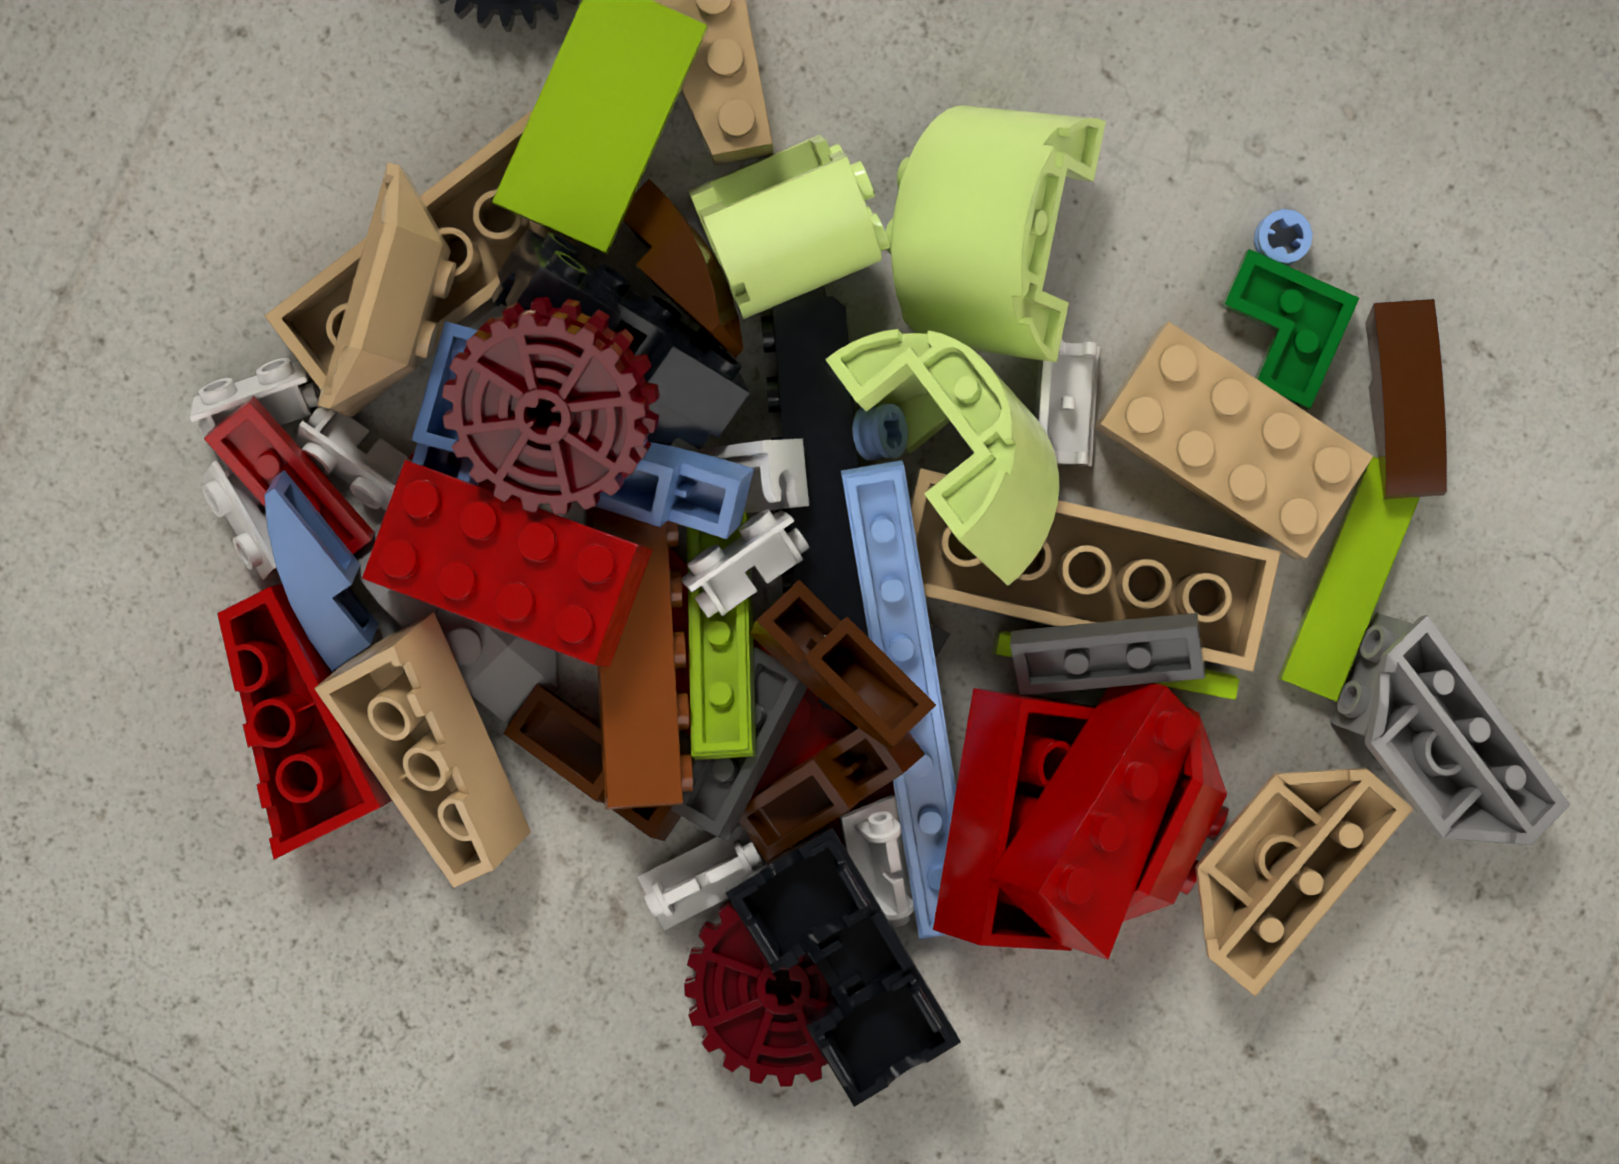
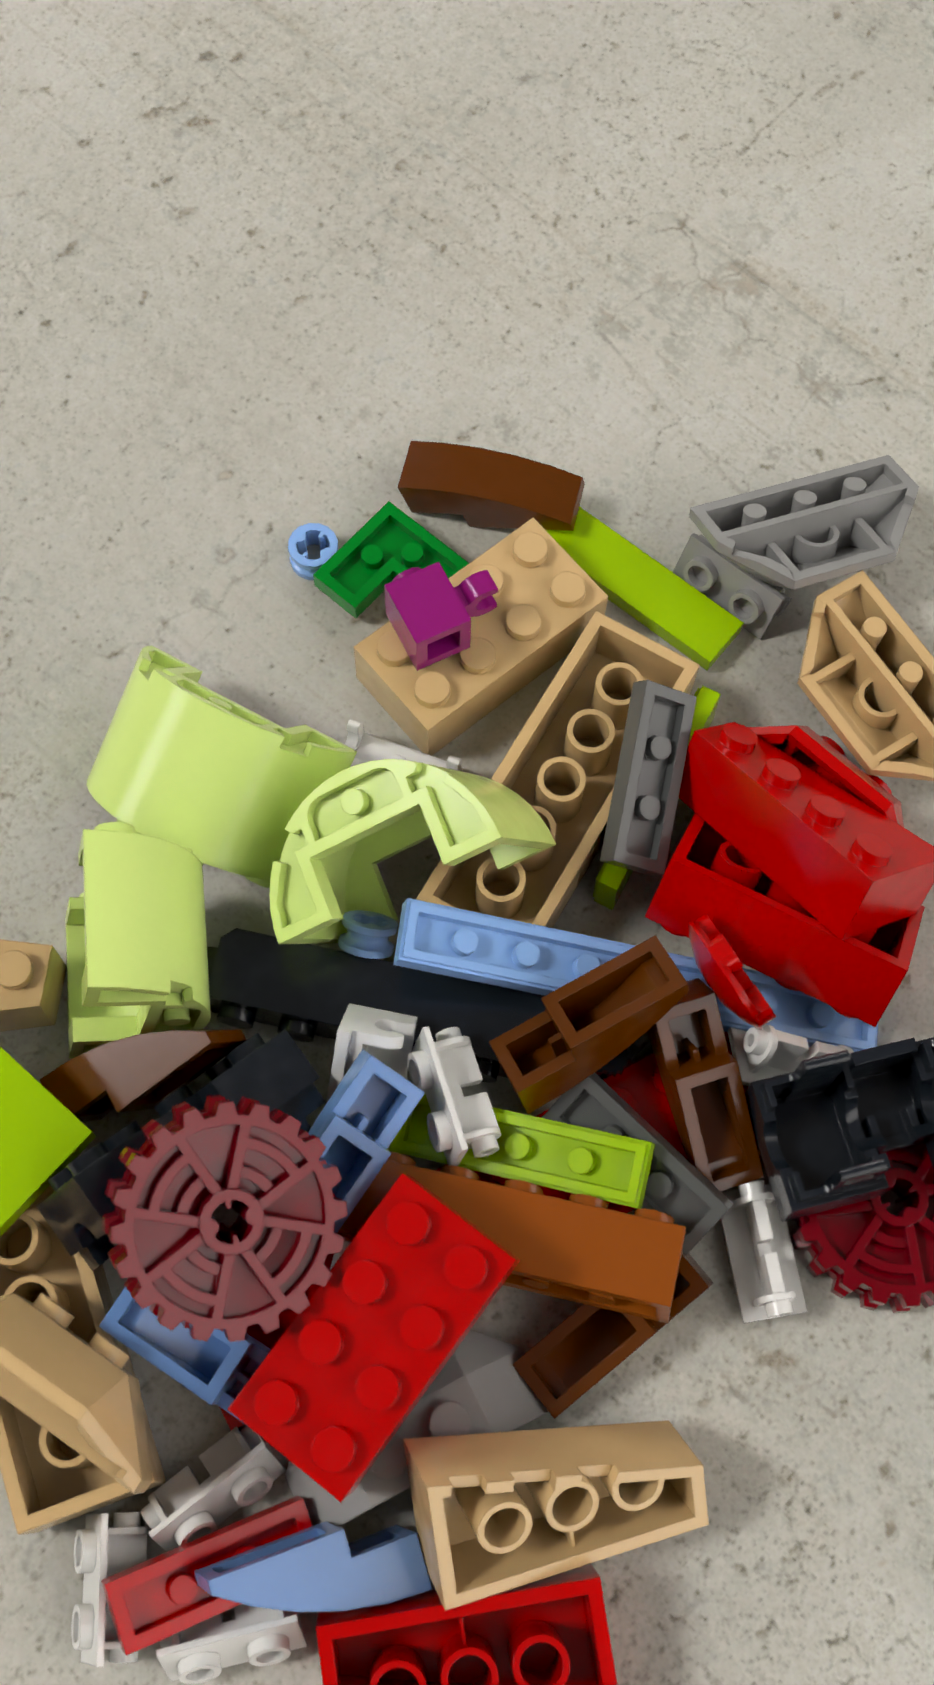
camera: 75 degrees left, 20 degrees down
(925, 780) = (725, 974): none -> red dish
(1214, 393) = (433, 614): none -> magenta brick

